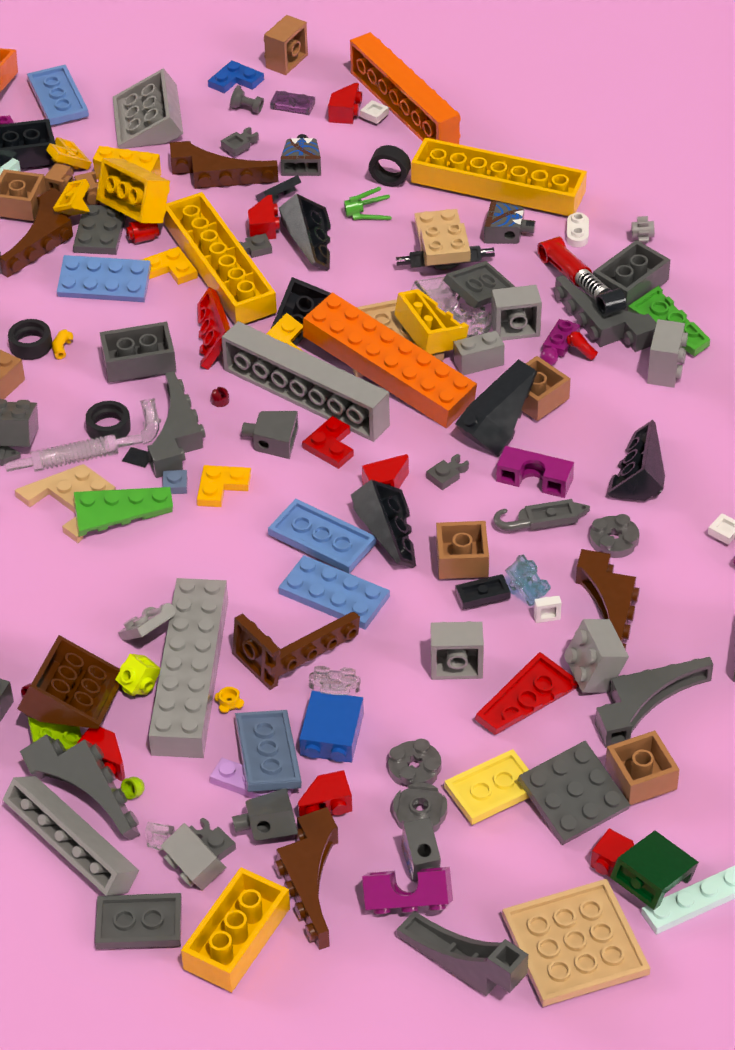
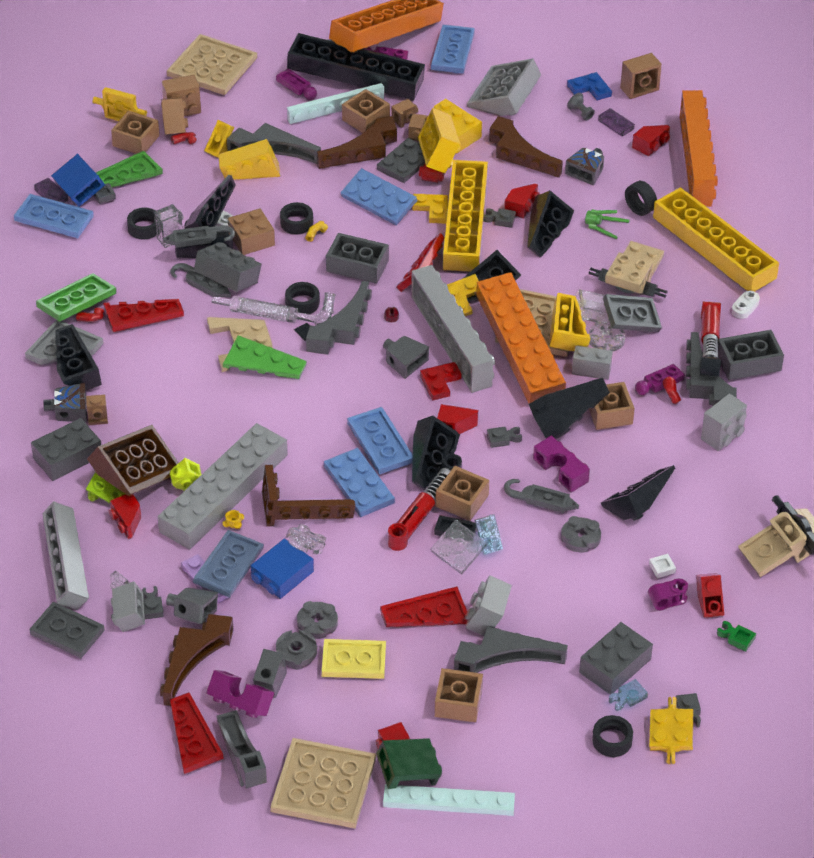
camera: 30 degrees right, 0 degrees up
(68, 153) = (424, 96): yellow plate -> none
(71, 198) = (394, 130): yellow slope -> none
(84, 769) = (103, 522): dark grey arch -> none
(132, 787) = (129, 545): lime hinge -> none
(150, 619) = (211, 442): light grey plate -> none
(176, 481) = (315, 359): sand blue plate -> none
(217, 480) = (343, 371): yellow plate -> none
(235, 929) = (117, 663): yellow brick -> none
(237, 143) = (552, 136): dark grey plate -> none
(287, 187) = (558, 183): black plate -> none
(328, 791) = (244, 609): red slope -> none
(374, 111) = (668, 153): white plate -> none
(388, 967) = (193, 735): none -> red wing
(426, 577) = (414, 515): none -> red piece
(457, 650) = (399, 557): light grey brick -> none
(506, 224) = (692, 277): dark grey torso -> none
(506, 608) = (458, 547): none -> clear plate
(516, 312) = (639, 345): light grey brick -> none
(547, 609) = (489, 561): white plate -> none
(573, 792) = (402, 688): dark grey plate -> none
(609, 590) = (541, 578): reddish brown arch -> none
(642, 229) = (791, 324): light grey gear -> none
(663, 308) = (753, 392): bright green wing -> none

